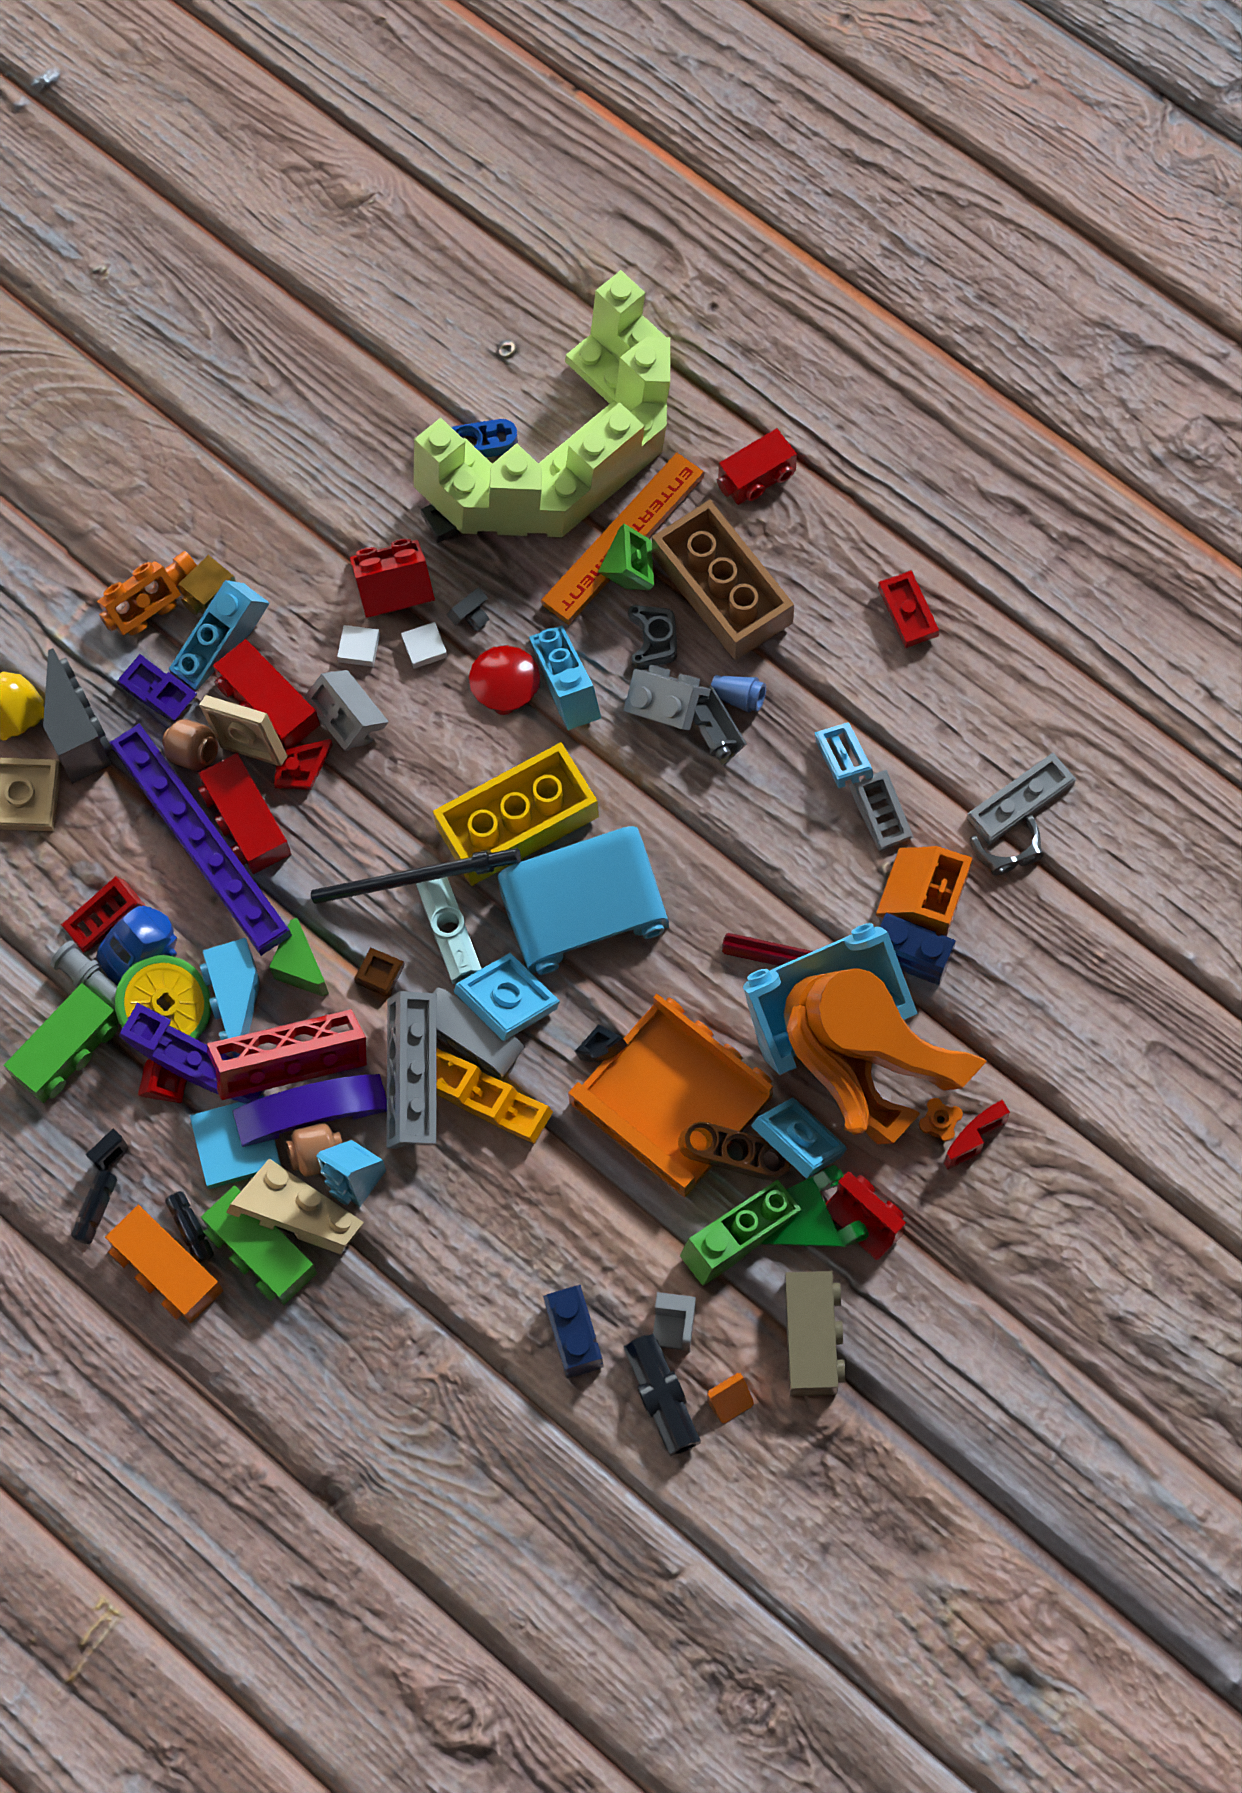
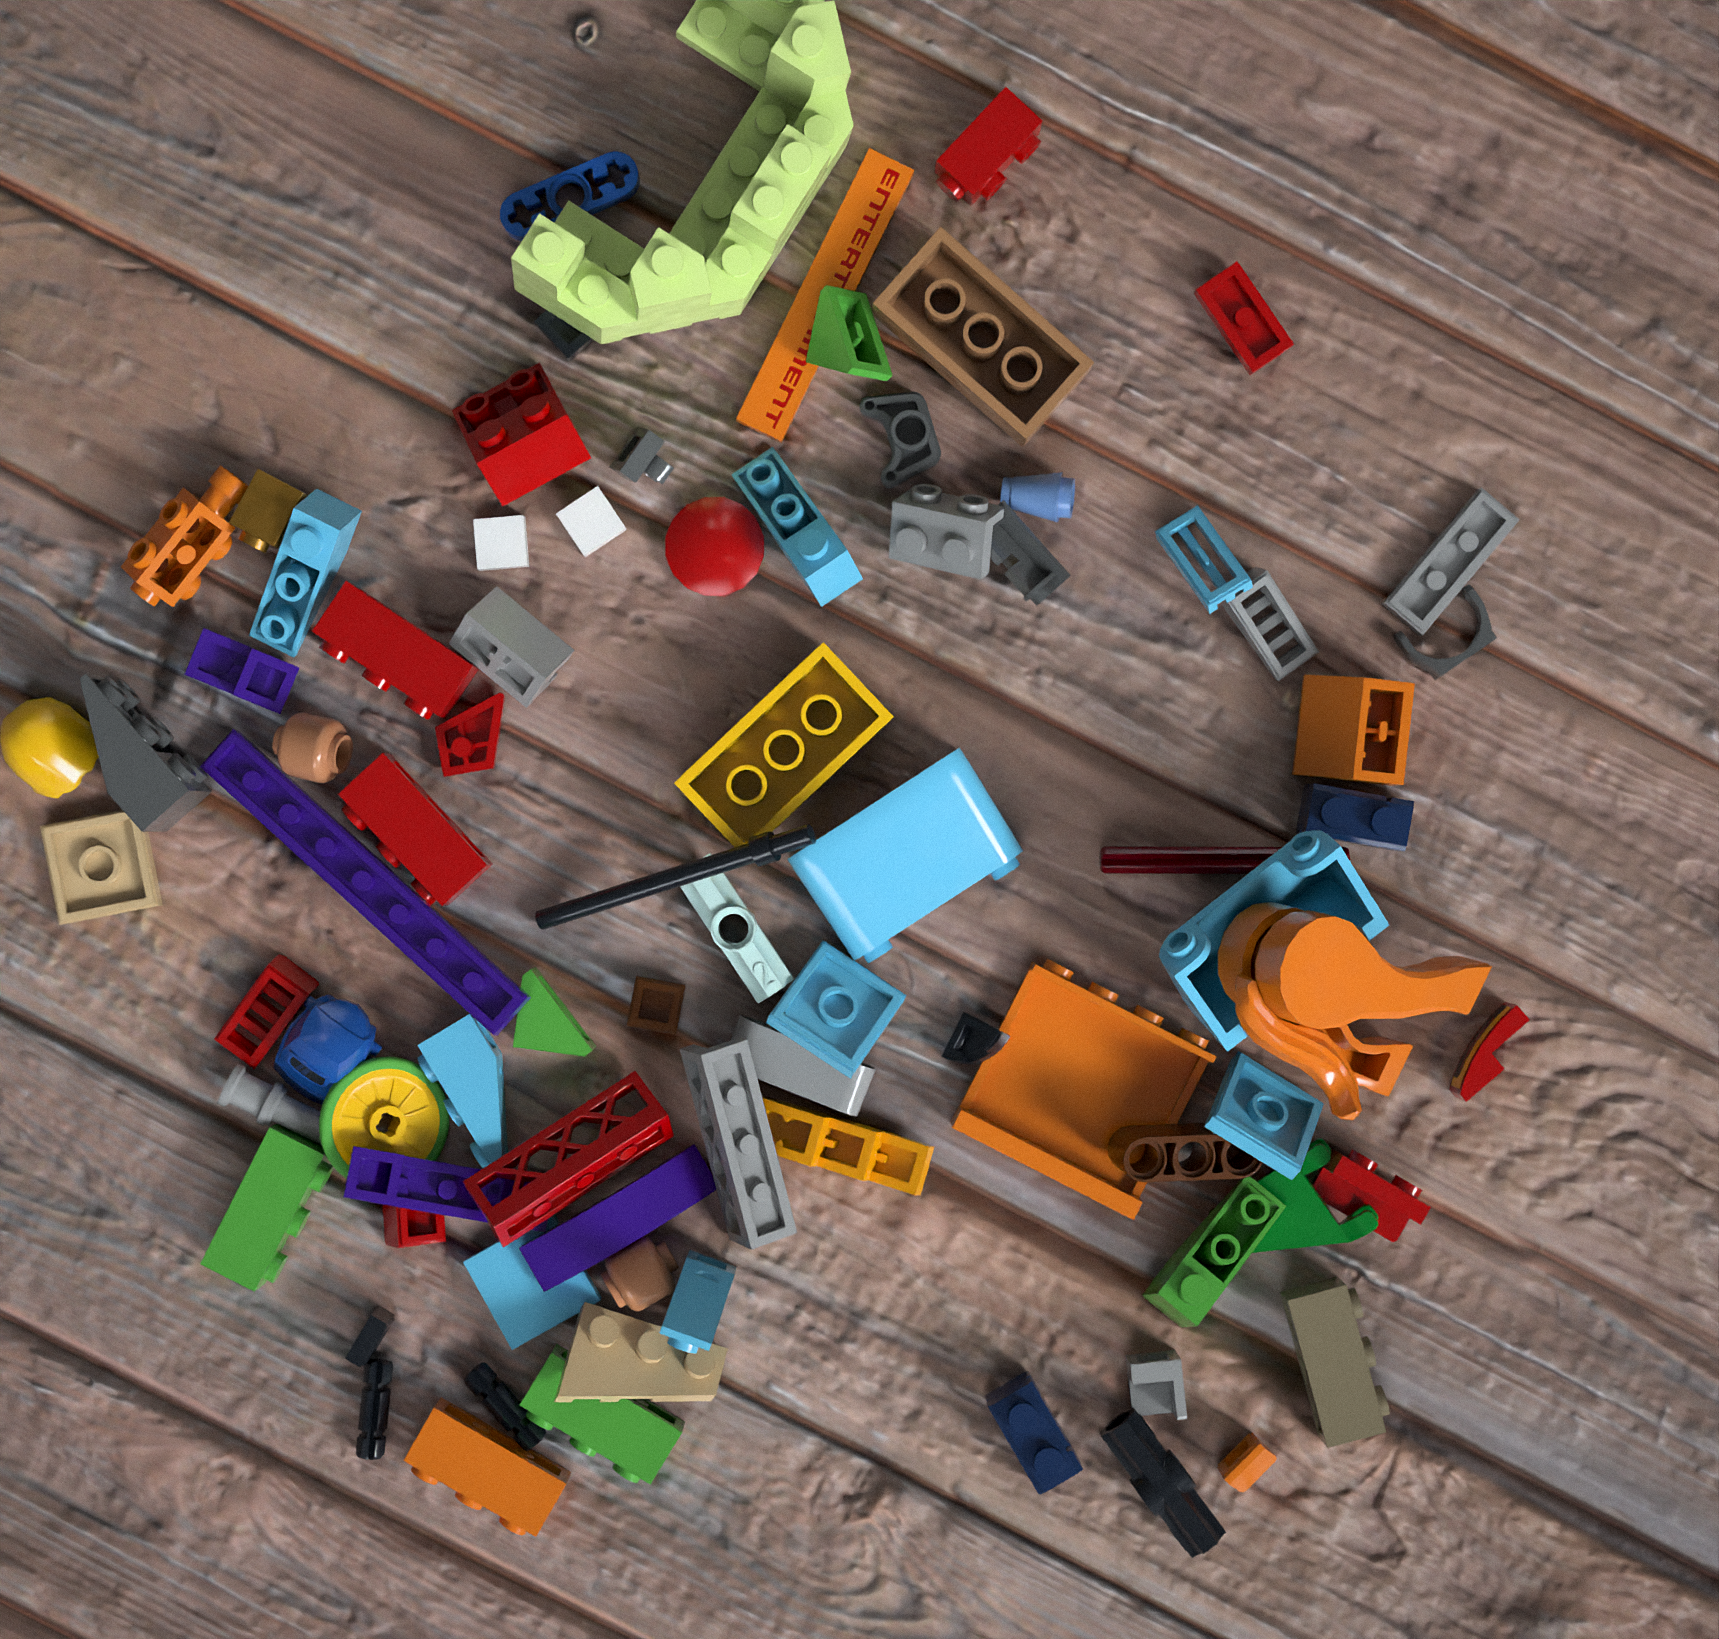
camera: 15 degrees left, 20 degrees up
(243, 730) = (382, 722): tan tile -> none
(942, 1130) = (1445, 1050): orange plate -> none

